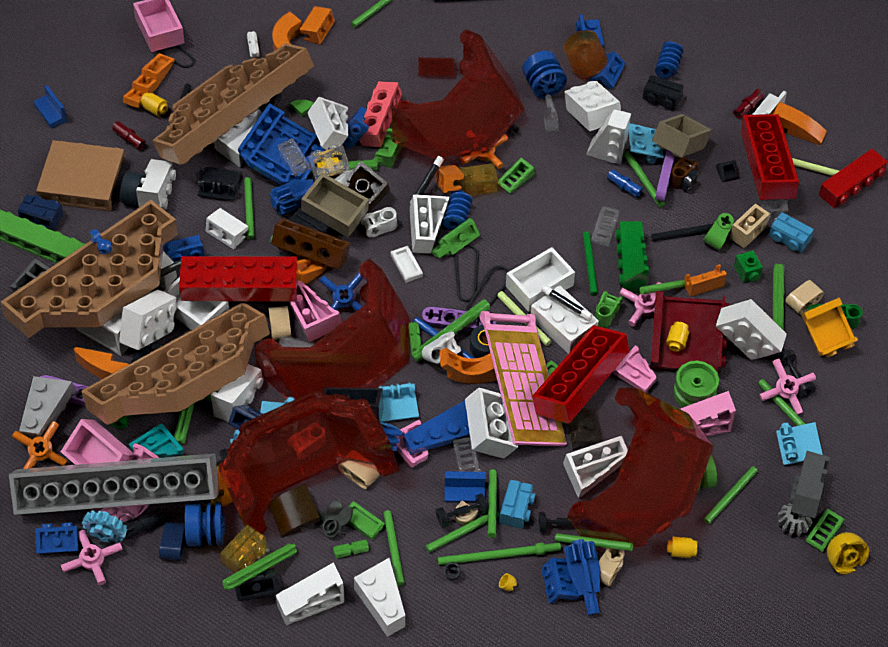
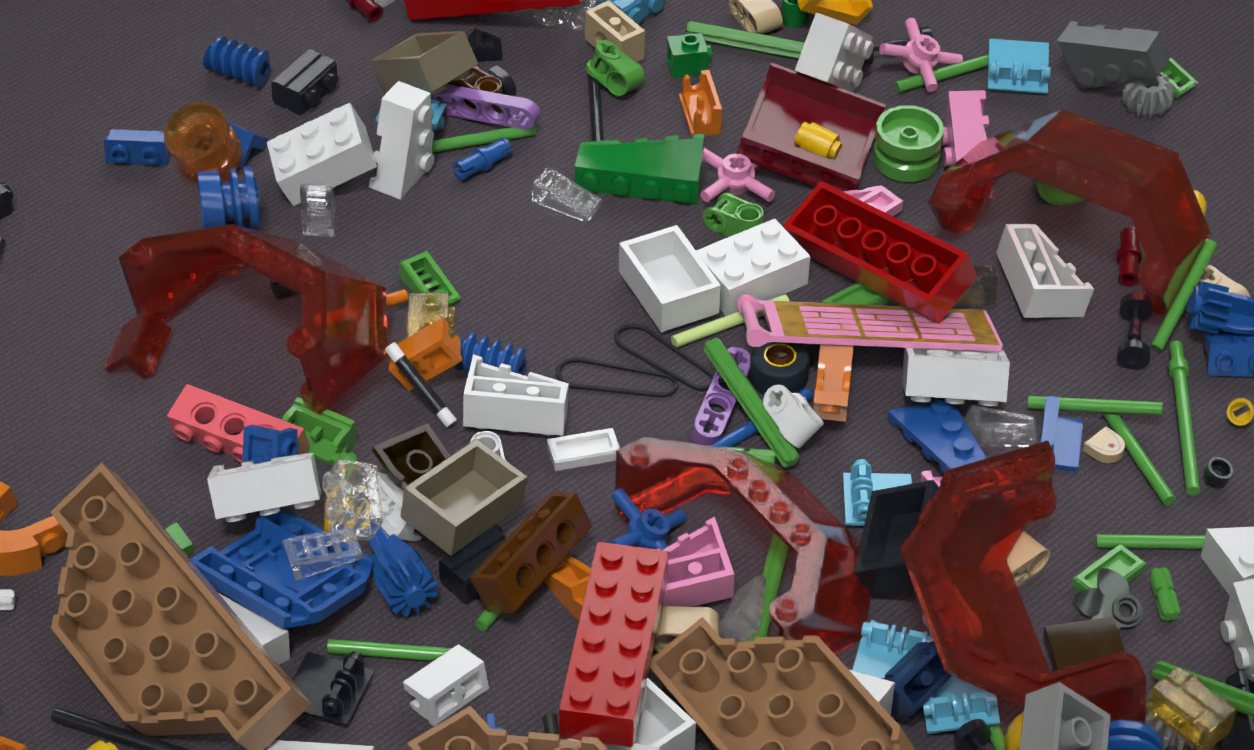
camera: 80 degrees left, 10 degrees down
(456, 239) = (543, 358): bright green hinge -> none
(481, 504) = (1119, 465): black wheel -> none
(516, 504) = (1098, 376): dark azure brick -> none
(566, 302) = (741, 240): black bar -> none
(590, 263) = (628, 227): green bar -> none
(662, 287) = (716, 147): bright green bar -> none
(846, 552) = (1208, 53): yellow cylinder -> none

